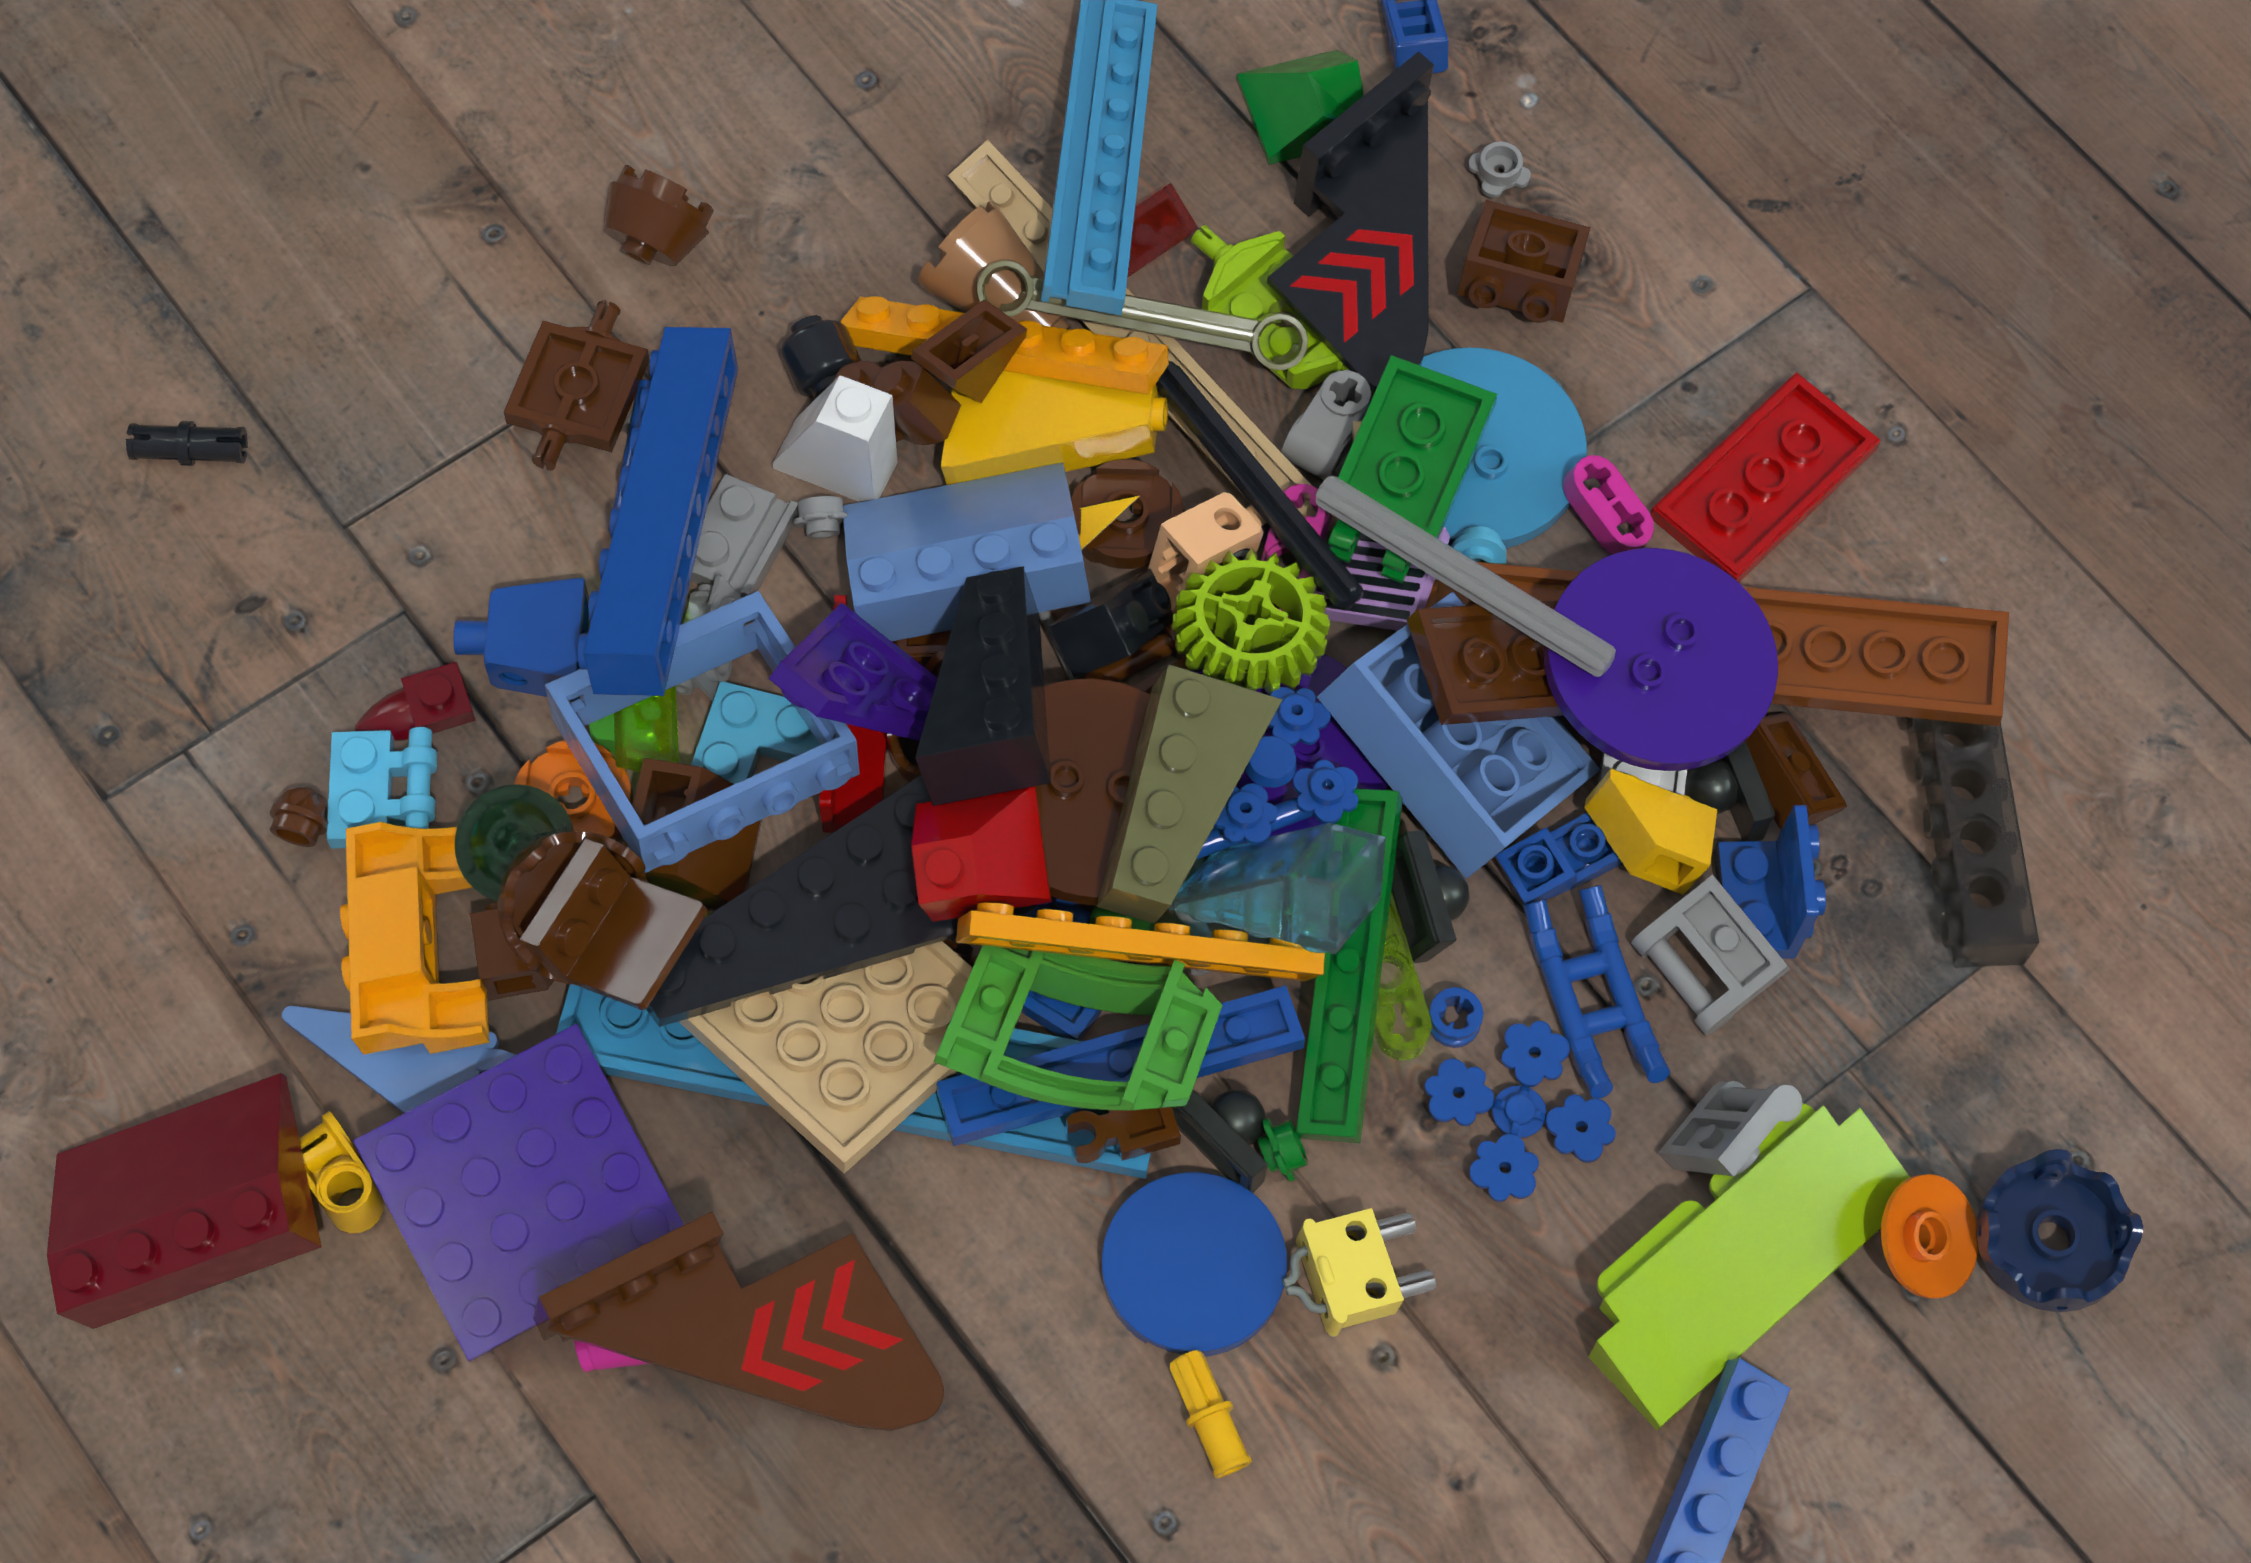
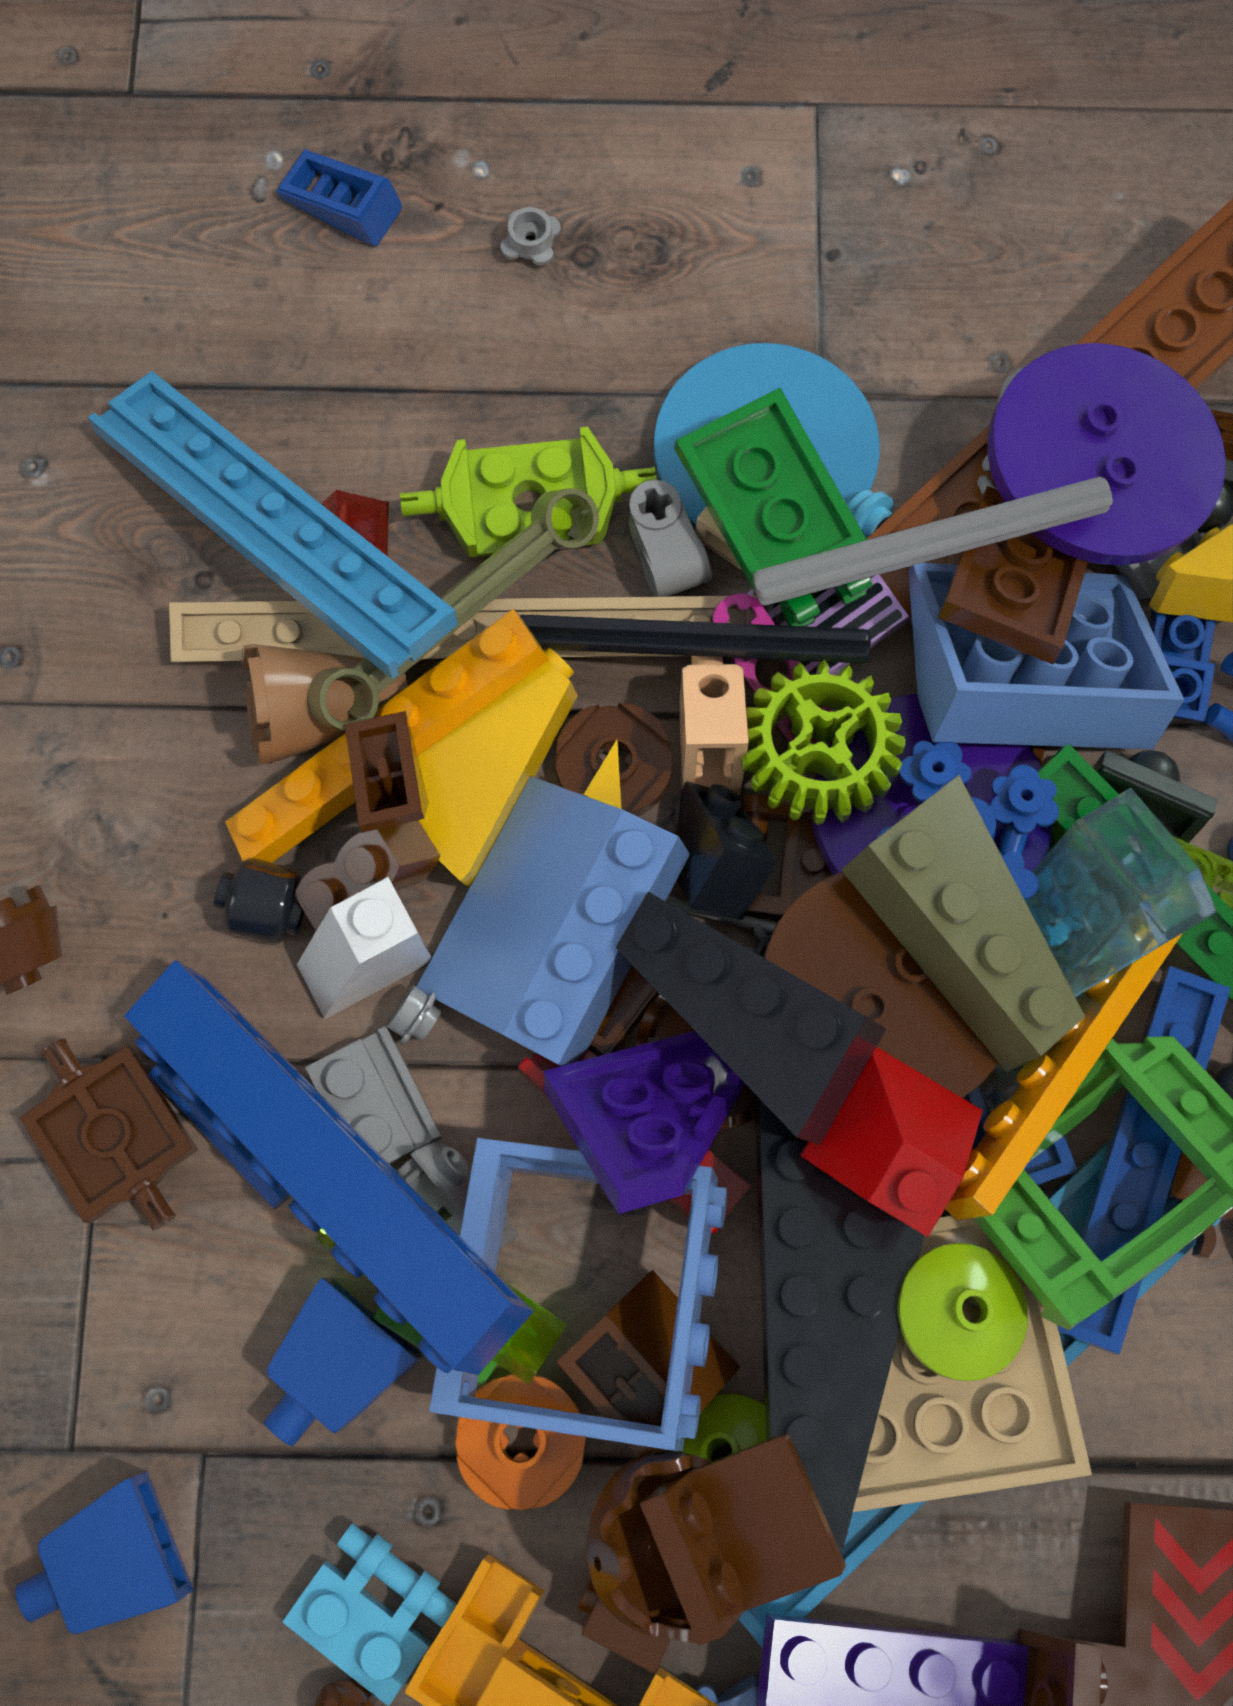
camera: 50 degrees left, 10 degrees up
(292, 593) = (108, 1562): none -> blue torso
(427, 700) = (314, 1514): dark red plate -> none
(499, 828) = (541, 1548): clear green cone -> none
(748, 725) = (562, 1242): medium azure plate -> none
(887, 1028) = (933, 1315): none -> lime dish
(1298, 100) = (344, 330): green slope -> none
(1368, 272) = (554, 403): black piece -> none
(1523, 262) = (636, 282): reddish brown plate -> none
(1608, 505) = (903, 390): dark pink beam -> none
(1765, 478) = (960, 264): red tile -> none

